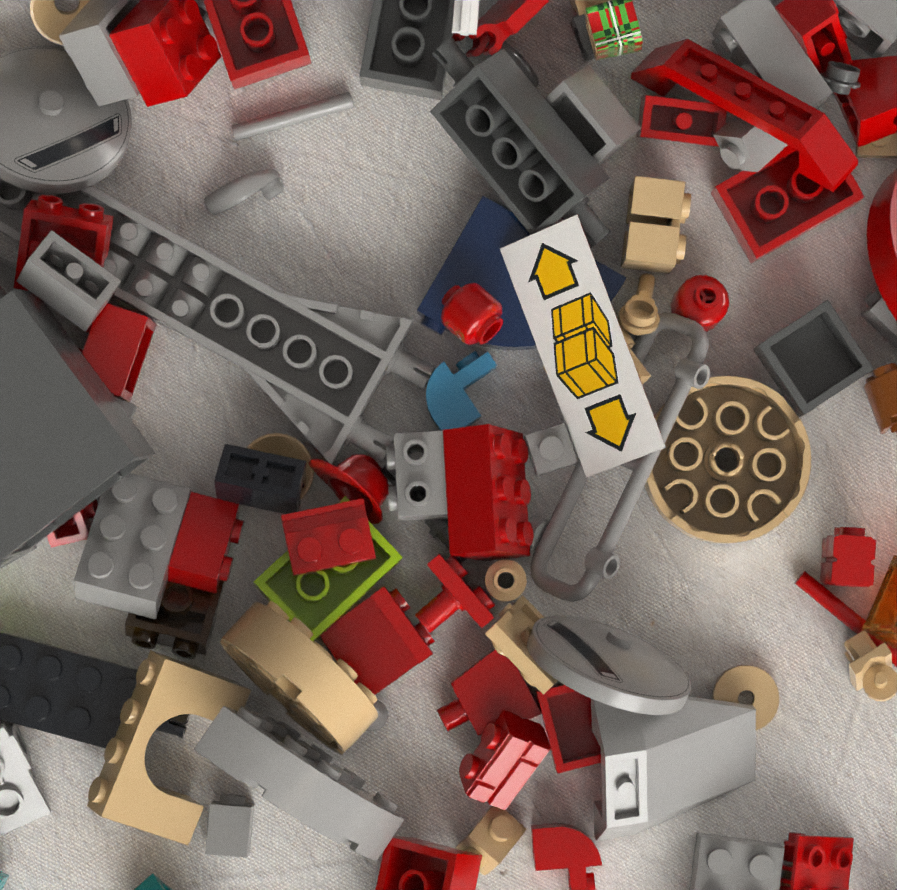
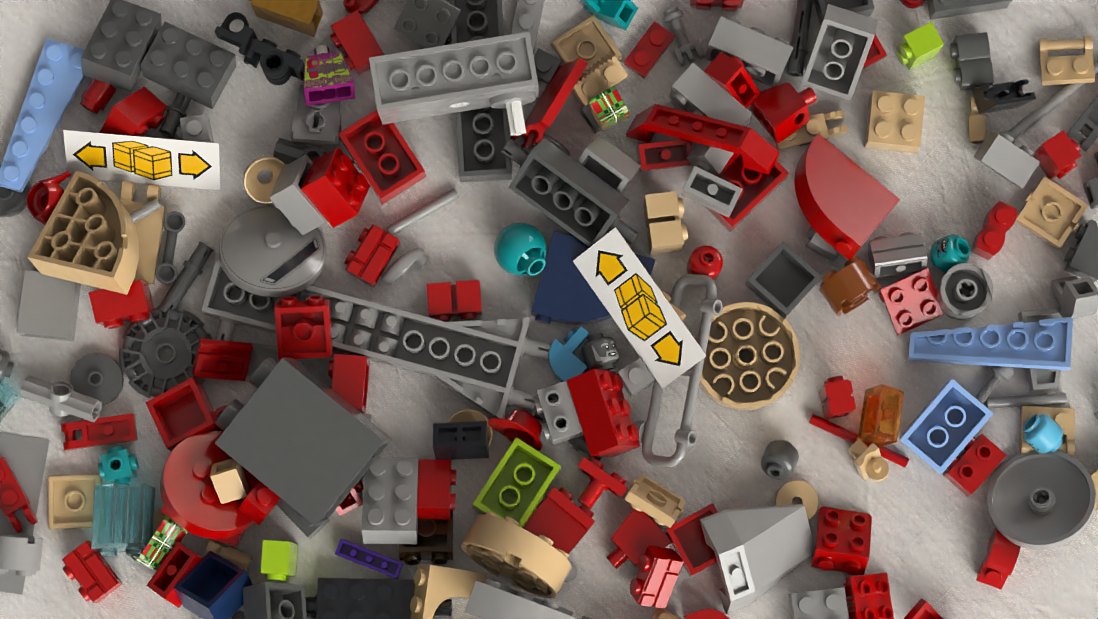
camera: 15 degrees left, 5 degrees down
(68, 280) = (313, 345): light grey brick -> none
(80, 621) = (369, 558): none -> dark purple piece
(198, 162) = (372, 255): none -> red brick
(306, 263) = (454, 300): none -> red piece
(328, 537) = (512, 464): red plate -> none
(425, 211) = (520, 249): none -> teal brick
(471, 313) = (565, 304): red head -> none
(493, 573) = (628, 473): tan brick -> none
(506, 399) = (600, 352): none -> dark grey head
(609, 665) = (706, 498): light grey dish -> none
(640, 313) = (669, 278): tan plate -> none
(736, 629) = (779, 459): none -> dark grey head
(738, 196) = (711, 191): none -> light grey brick
(799, 775) = (842, 541): none -> red bracket
(841, 77) = (755, 103): dark grey plate -> none

